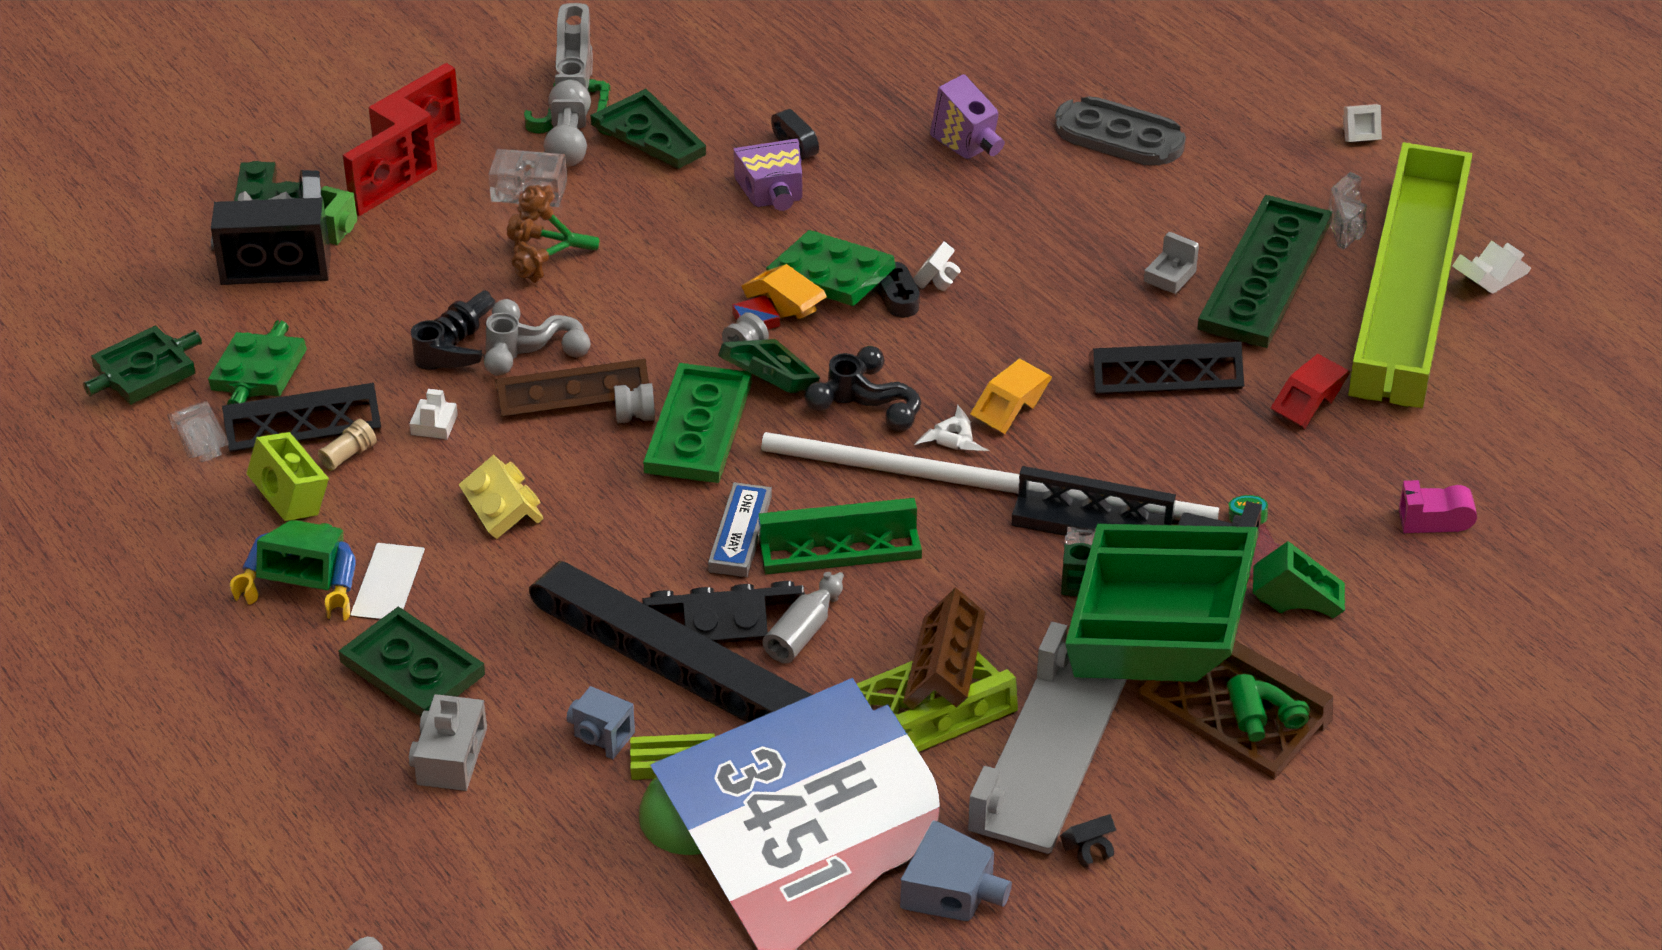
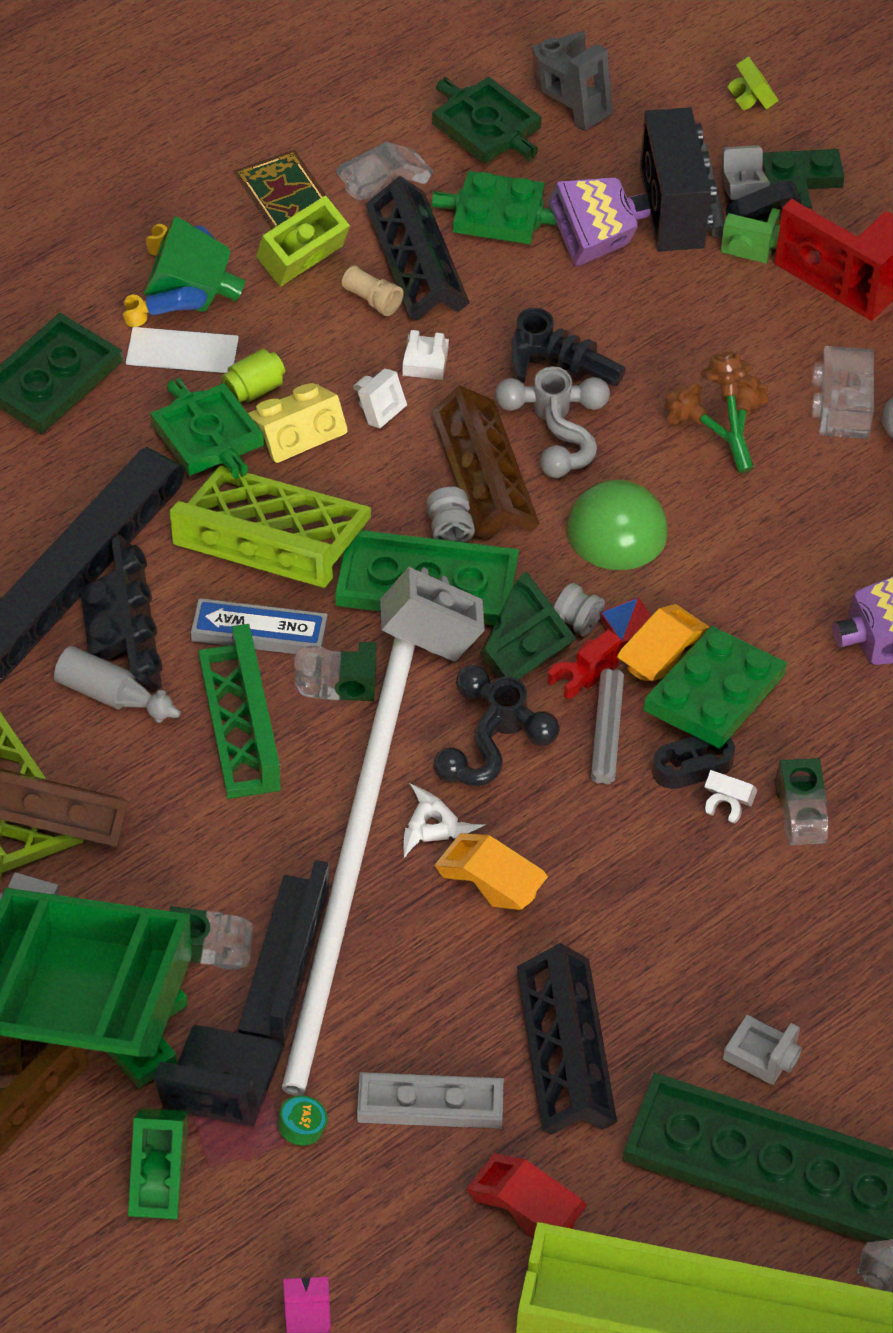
camera: 85 degrees right, 10 degrees up
(92, 304) = (562, 73): none -> dark grey tile
(149, 198) = (753, 85): none -> lime tile
(195, 507) = (280, 186): none -> sticker
(301, 297) = (595, 216): none -> medium lavender torso
(445, 522) = (254, 375): none -> lime brick
(485, 442) = (380, 397): none -> white tile
(505, 553) = (207, 428): none -> green plate
(647, 315) = (617, 525): none -> bright green piece
(654, 518) = (264, 543): none -> lime fence
(758, 403) = (432, 614): none -> light grey brick
(800, 474) = (336, 673): none -> leg
(801, 330) = (591, 660): none -> red plate
(861, 331) = (607, 726): none -> light grey axle
(955, 227) = (802, 801): none -> leg
(1220, 445) = (430, 1100): none -> light grey tile

